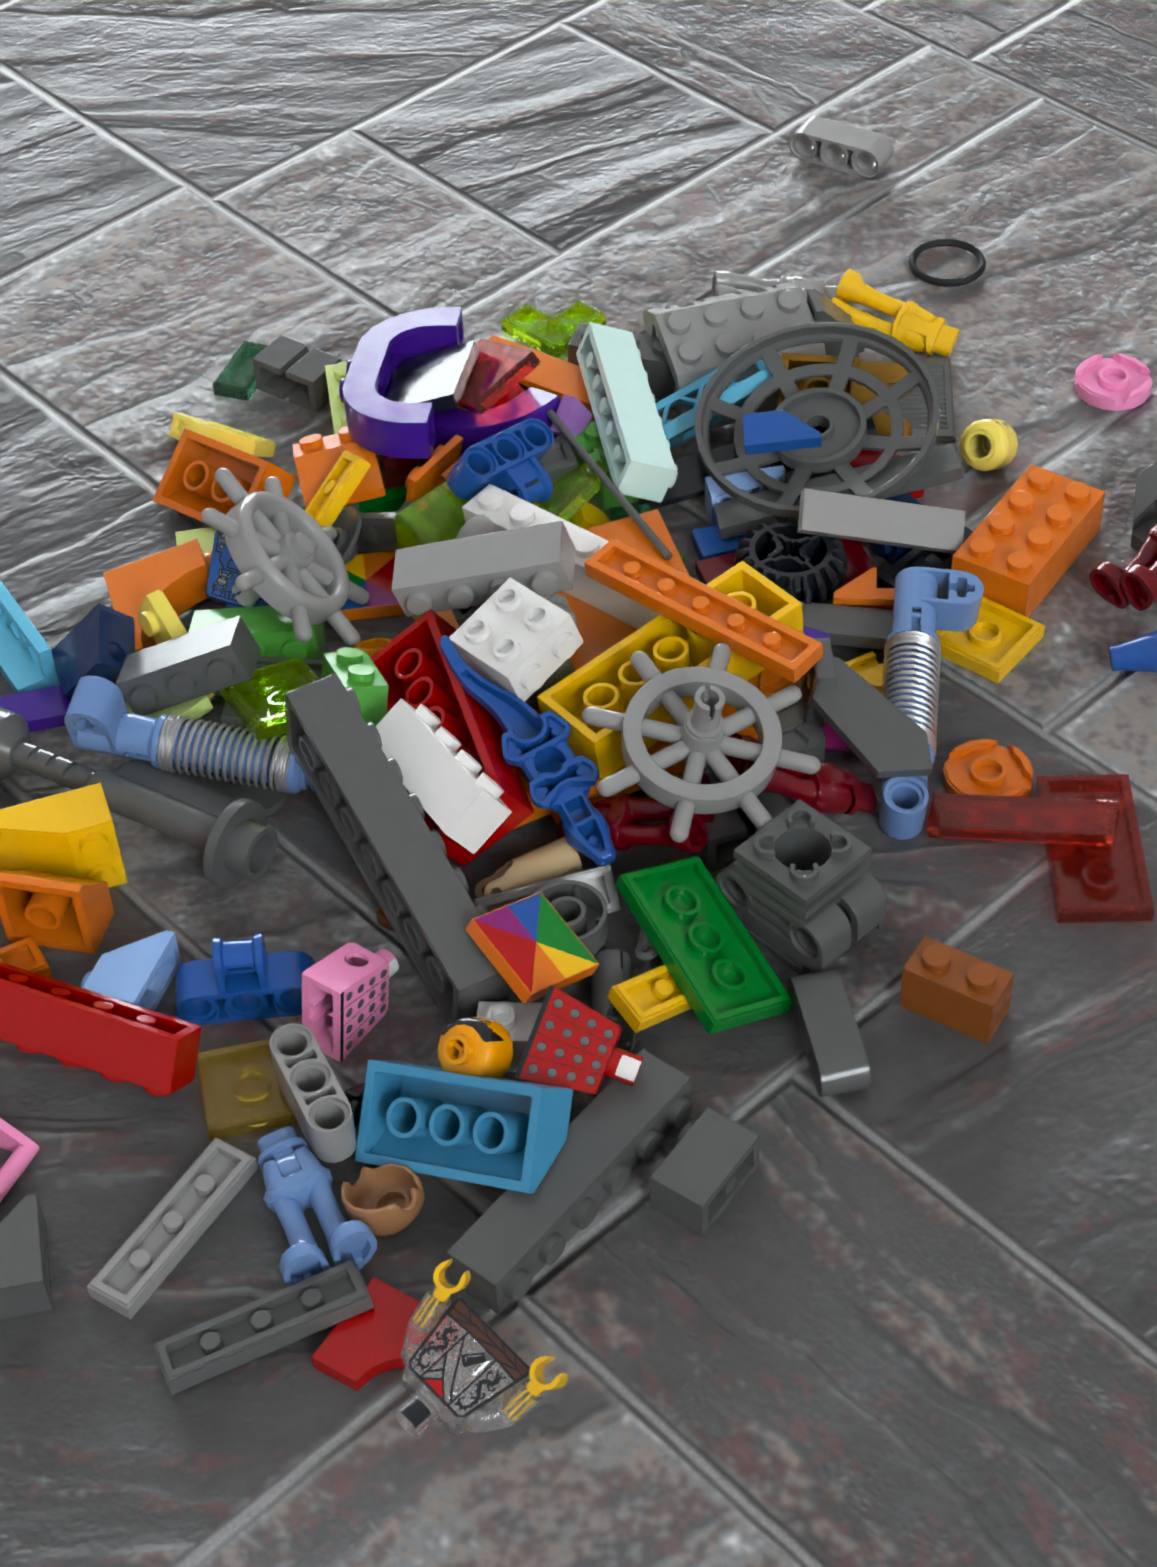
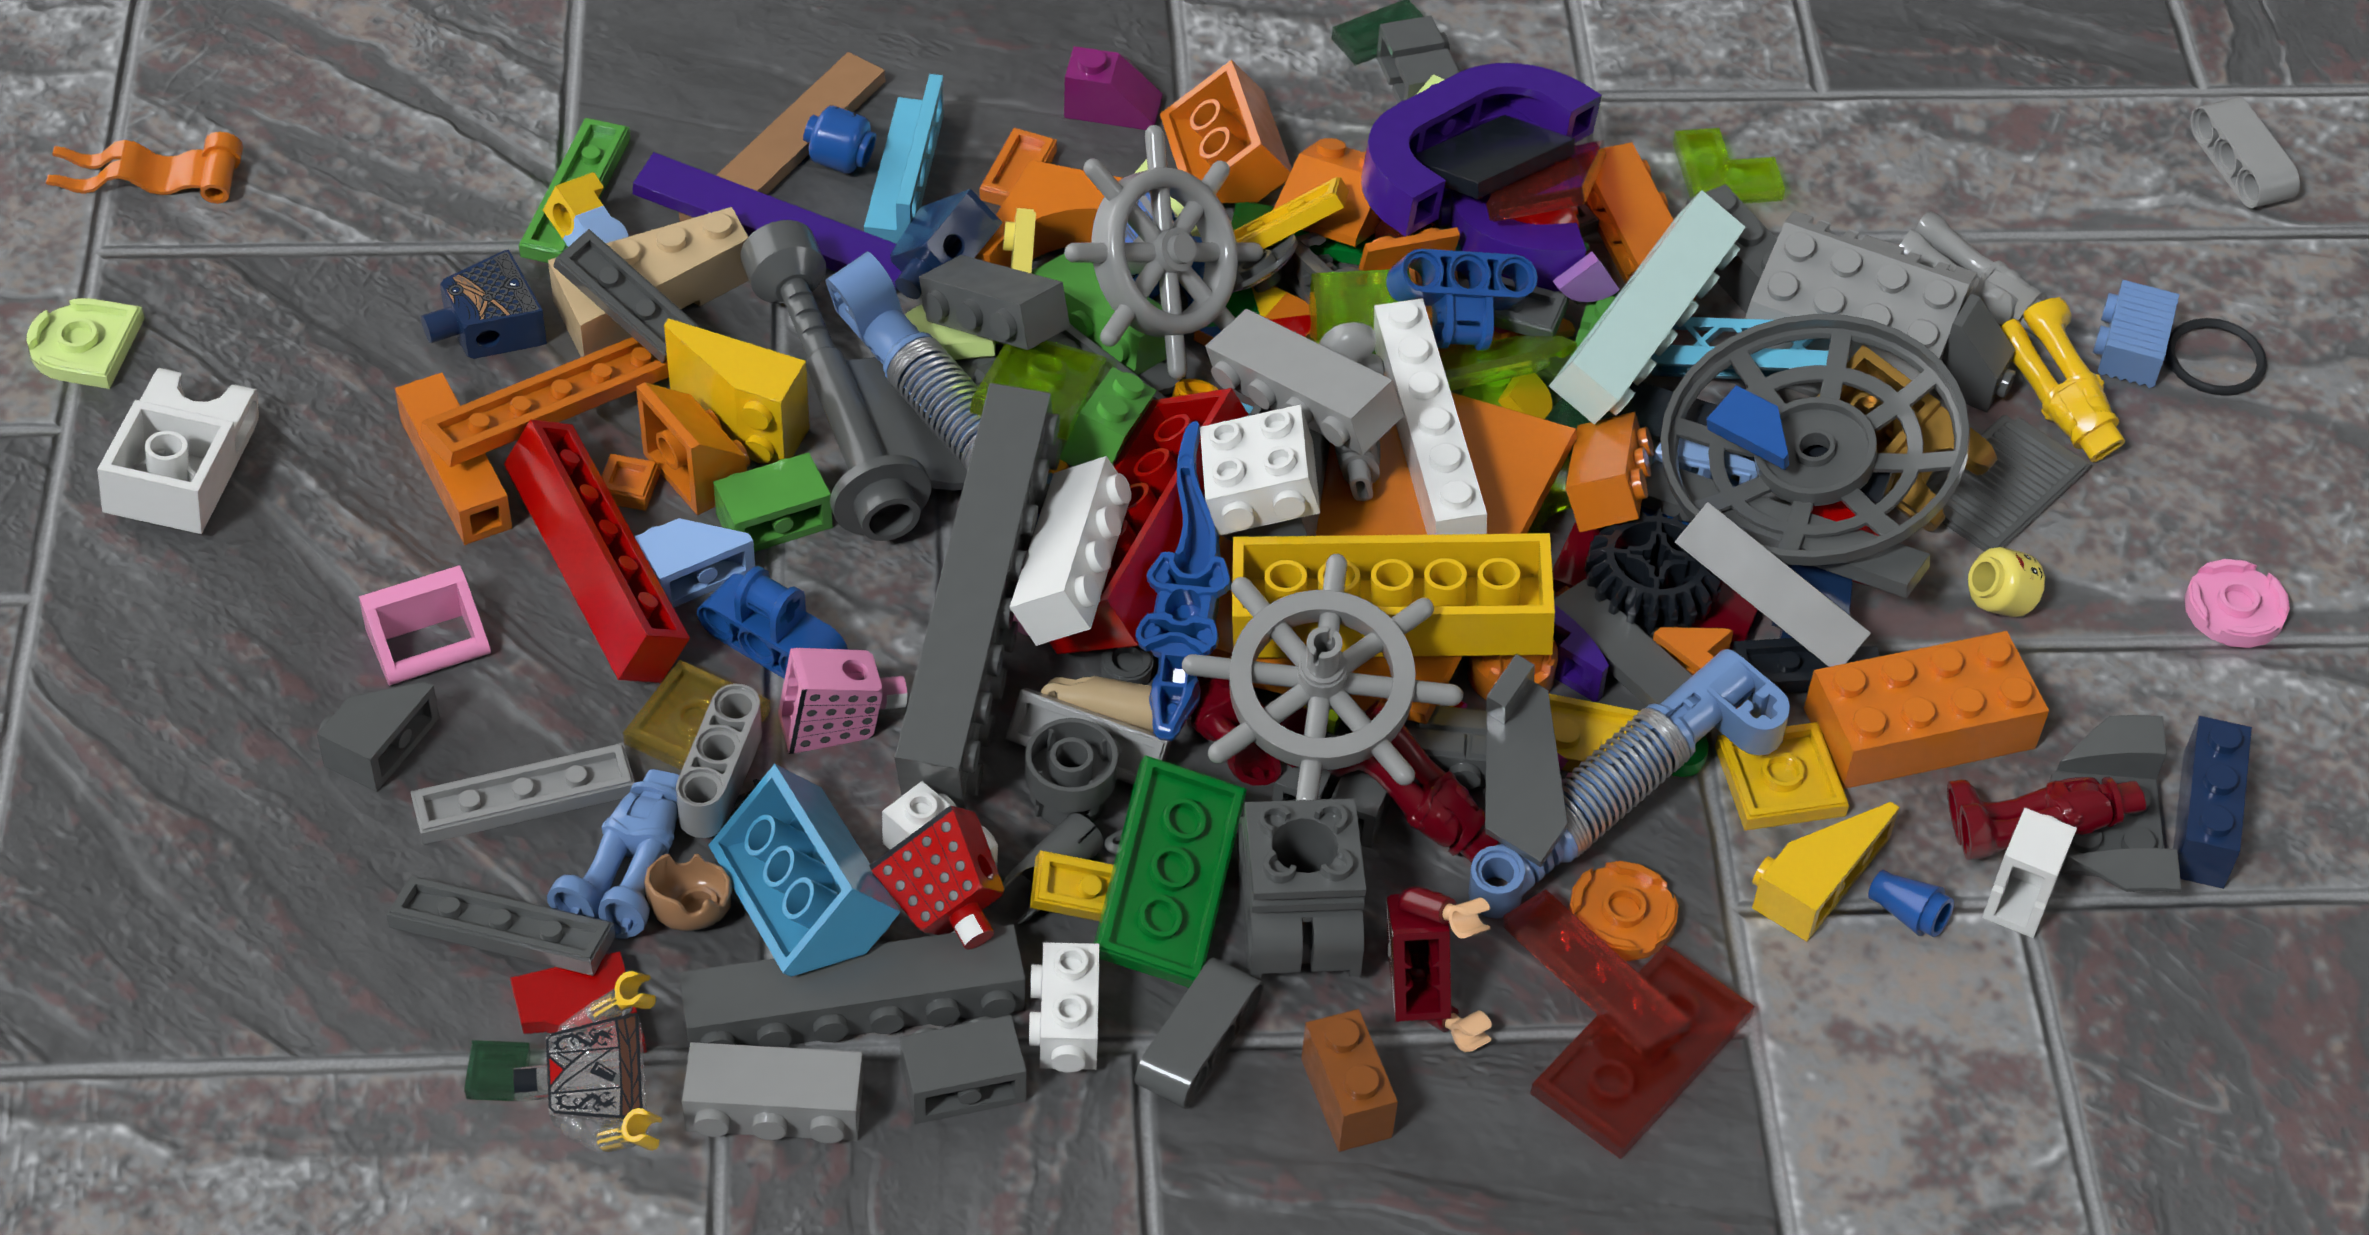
camera: 35 degrees right, 5 degrees up
(84, 586) = (1011, 162): none -> orange tile
(99, 505) = (1109, 90): none -> magenta slope
(154, 899) = (775, 501): none -> bright green brick
(227, 435) = (1284, 90): light yellow hinge -> none
(370, 1430) = (492, 1067): none -> clear green tile
(475, 1047) = (862, 819): light orange head -> none
(514, 844) = (1127, 664): none -> dark grey tile
(532, 947) = (993, 763): tile -> none
(593, 1286) = (773, 1092): none -> light grey brick
(609, 485) = (1547, 373): dark grey axle -> none
(704, 610) = (1450, 558): orange plate -> none
(706, 522) = (1609, 471): none -> orange brick
(733, 1075) = (1069, 1006): none -> white brick
(897, 269) = (2136, 334): none -> medium blue brick
(923, 875) = (1421, 961): none -> dark red torso
(1077, 675) = (1819, 869): none -> yellow slope

